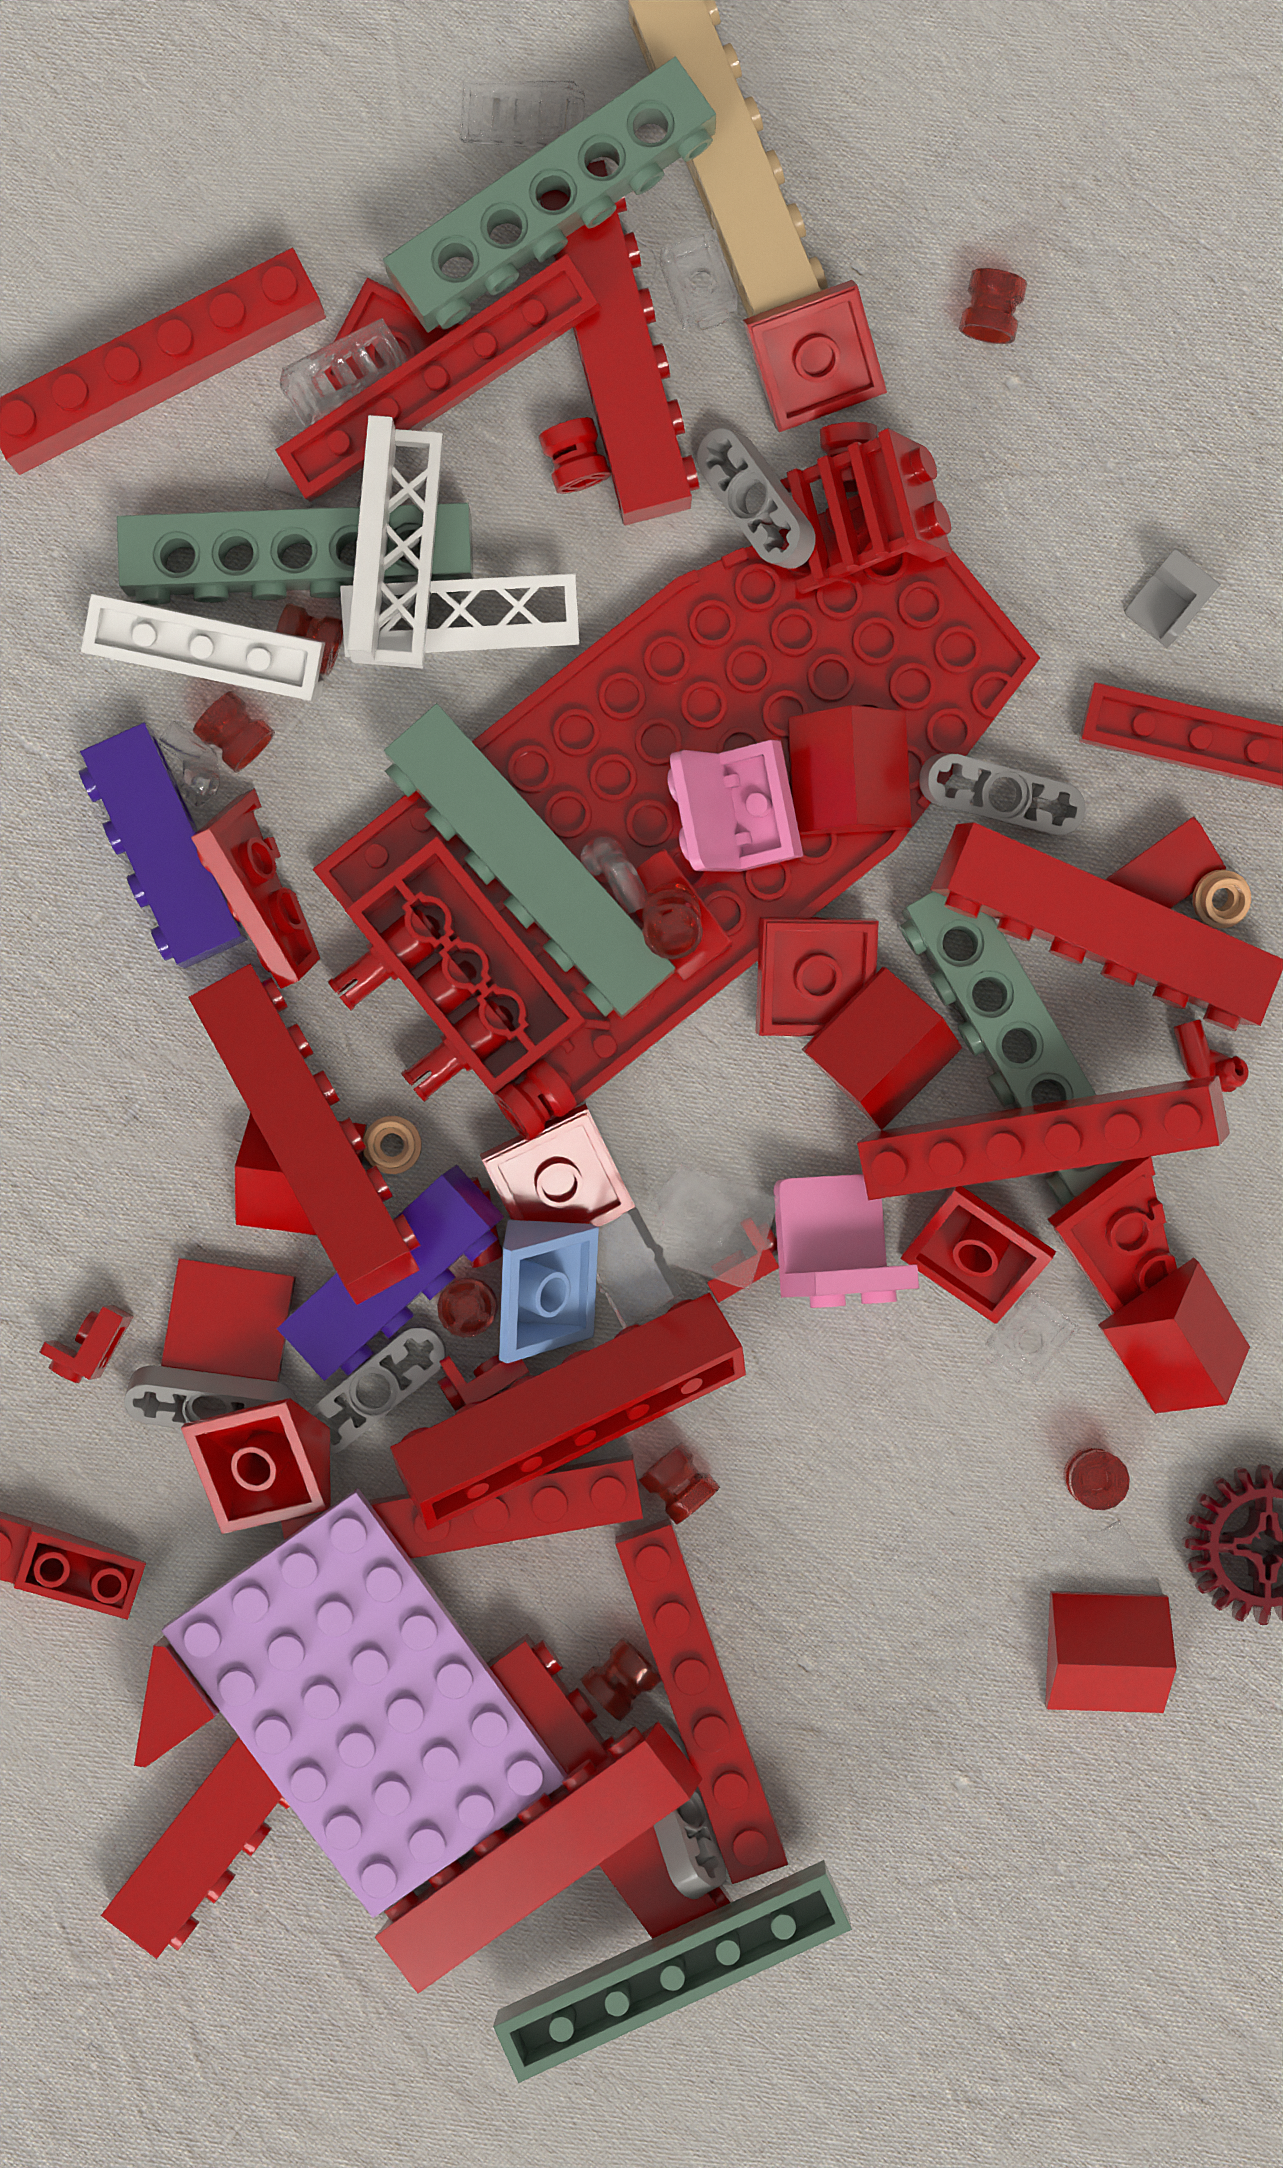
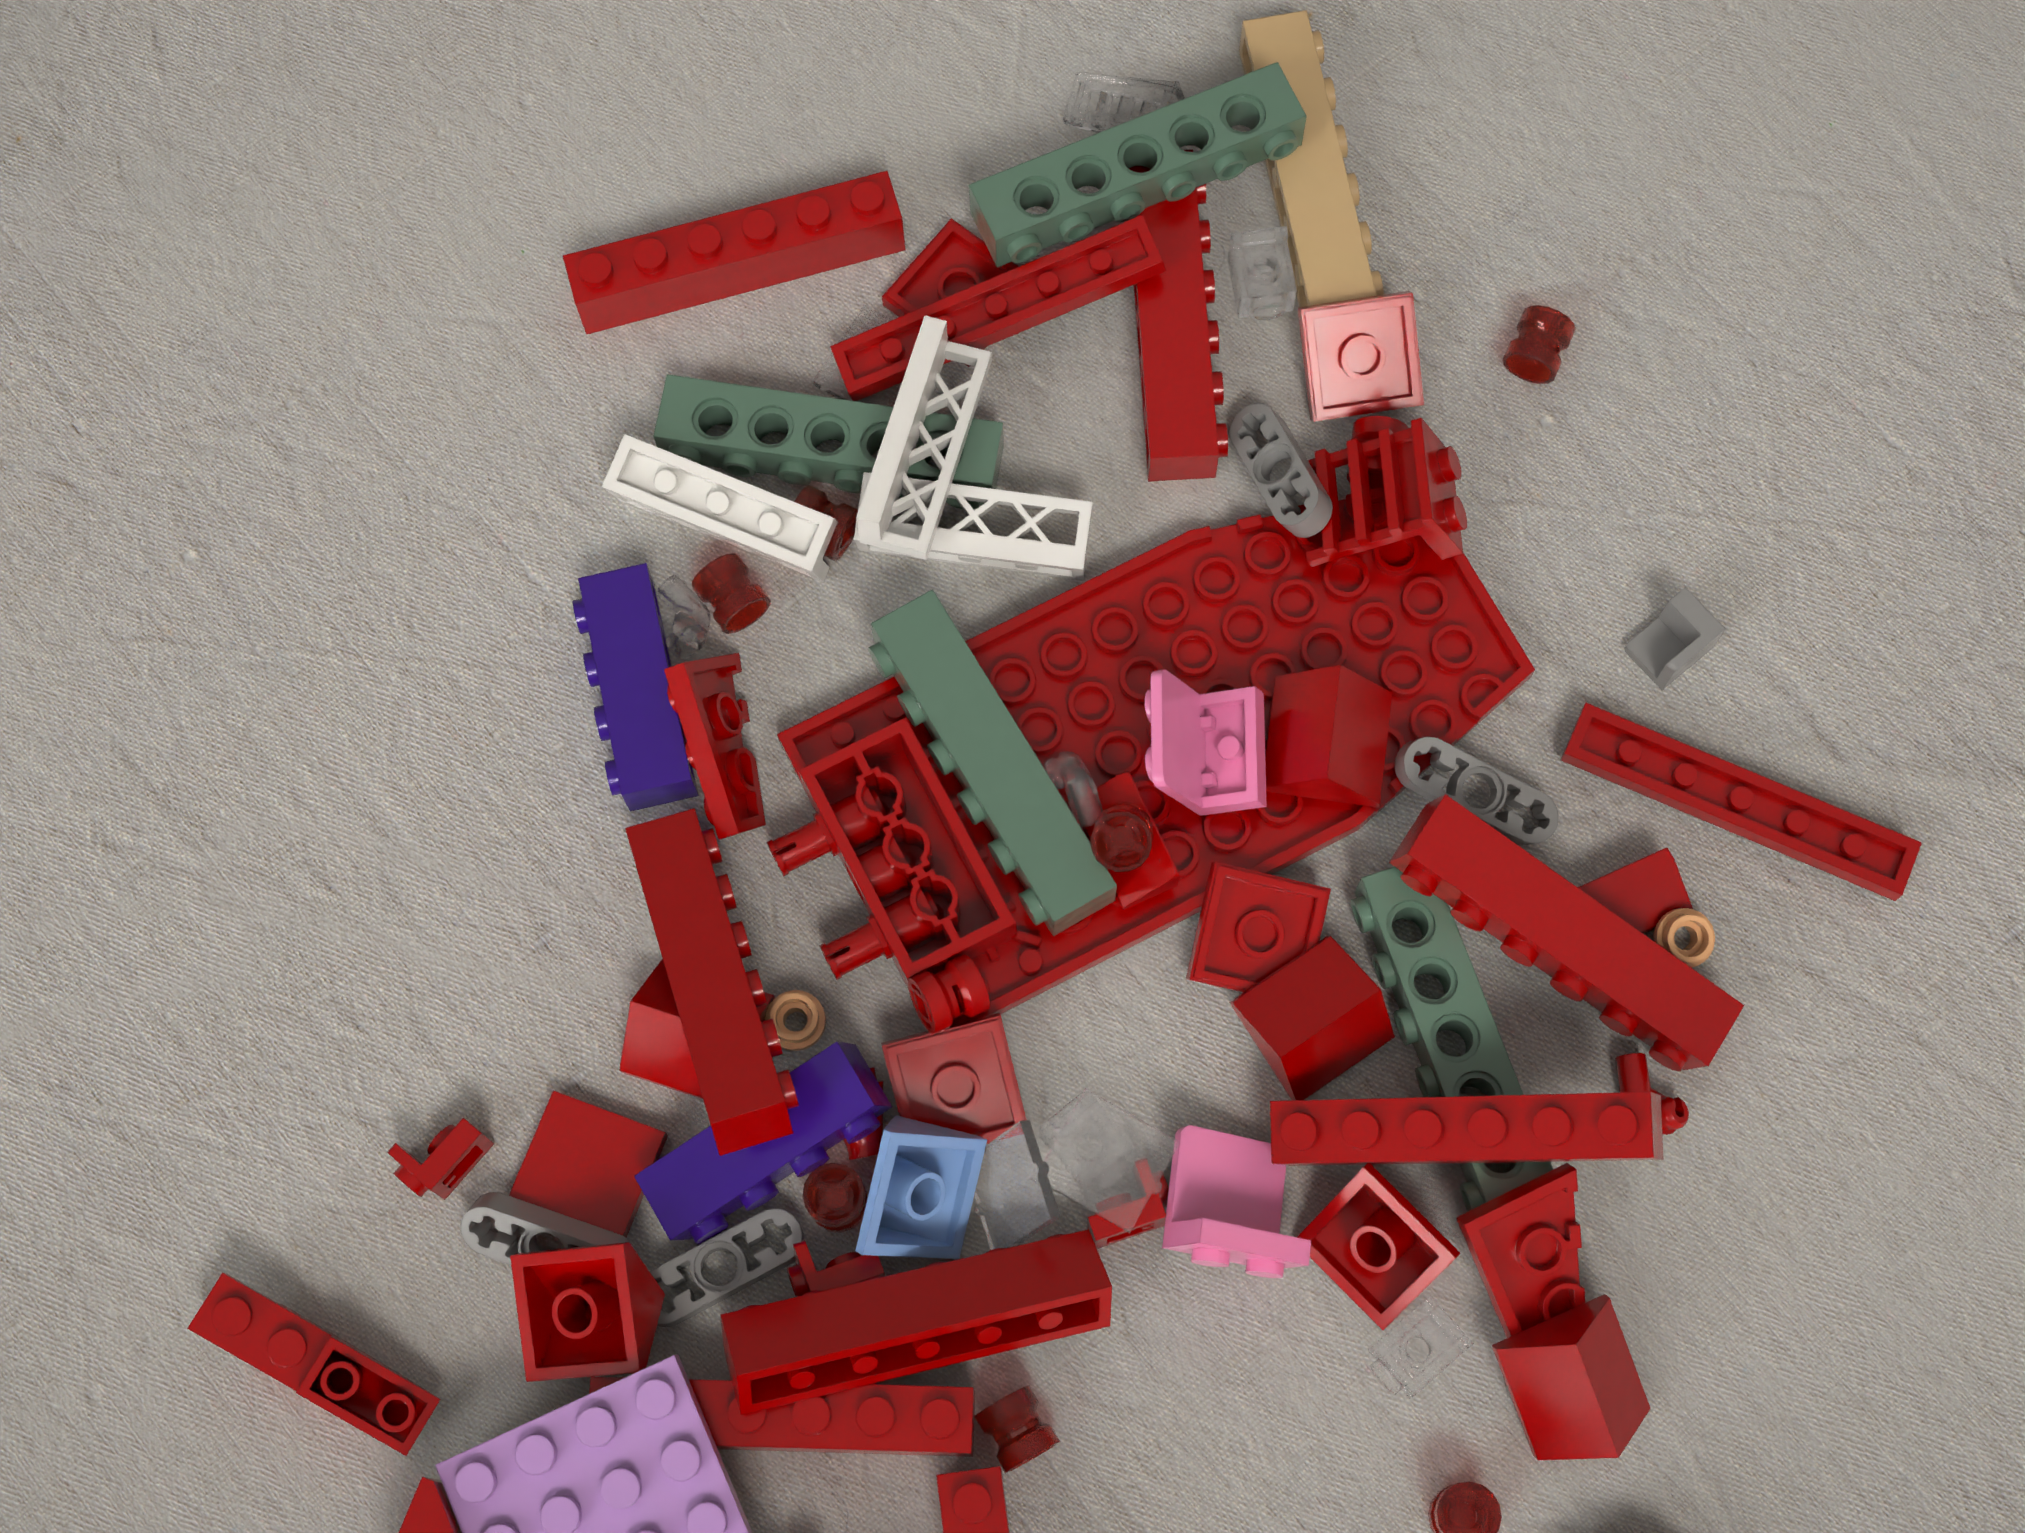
camera: 15 degrees right, 15 degrees down
(312, 368) = (883, 280): clear slope -> none
(574, 455) = (1113, 404): red wheel -> none

